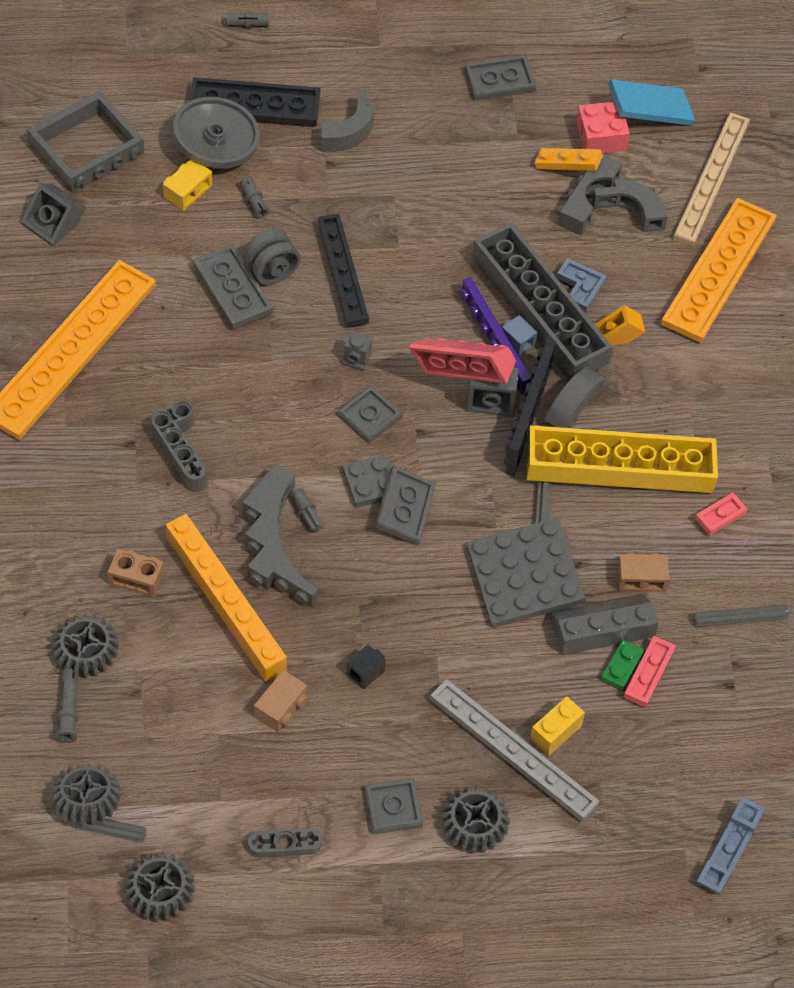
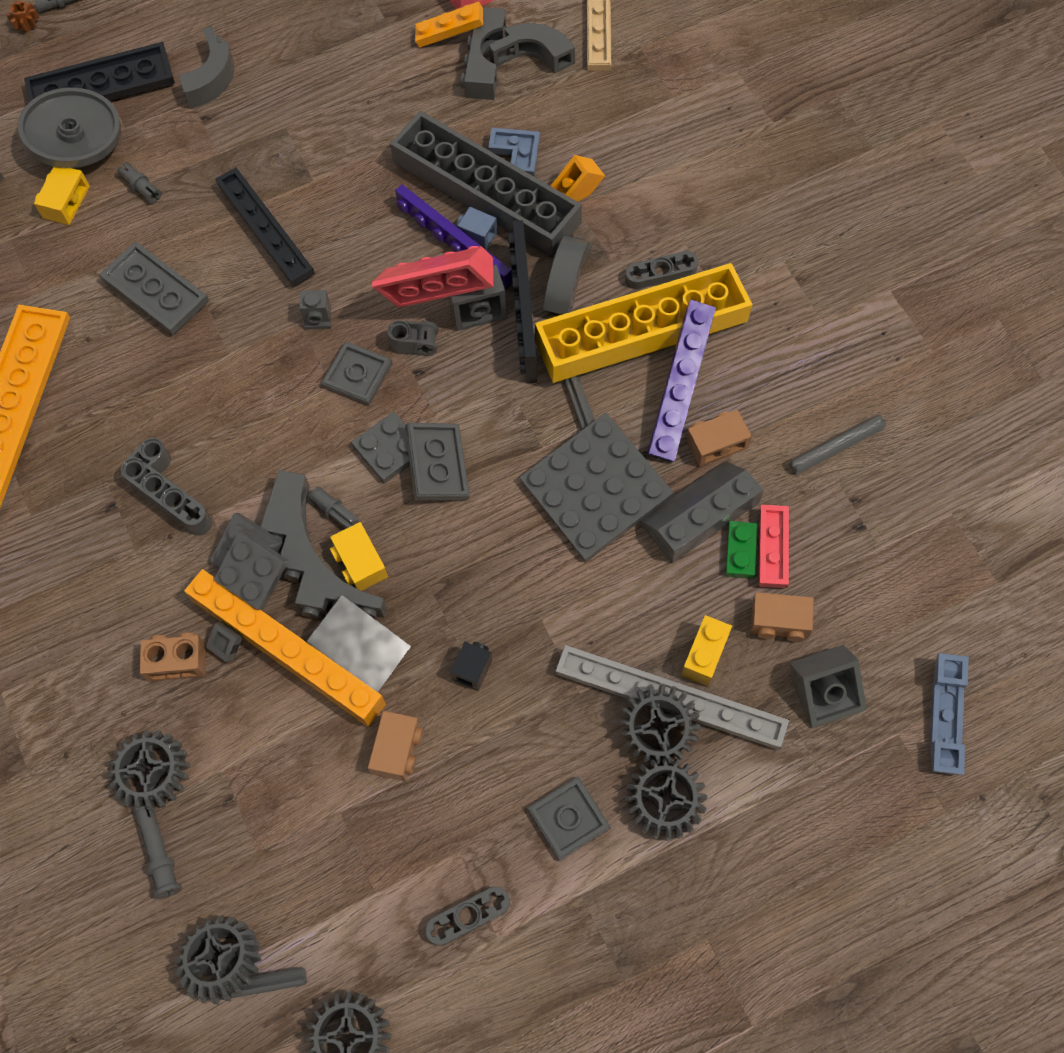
camera: 15 degrees left, 10 degrees up
(180, 575) = (224, 641): none -> dark grey plate
(211, 24) = (22, 16): none -> dark orange gear
(224, 521) = (249, 561): none -> dark grey bracket
(271, 256) = (182, 239): dark grey wheel -> none
(285, 614) = (358, 643): none -> tile
(311, 553) = (358, 556): none -> yellow brick
(428, 402) = (414, 337): none -> dark grey piece
(495, 751) = (634, 730): none -> dark grey gear
(630, 724) = (782, 616): none -> medium nougat brick
(631, 516) = (681, 381): none -> plate
(643, 417) = (655, 278): none -> dark grey beam
(643, 789) = (829, 685): none -> dark grey slope
(718, 270) = (648, 85): light orange plate -> none
(721, 514) = (767, 341): coral plate -> none

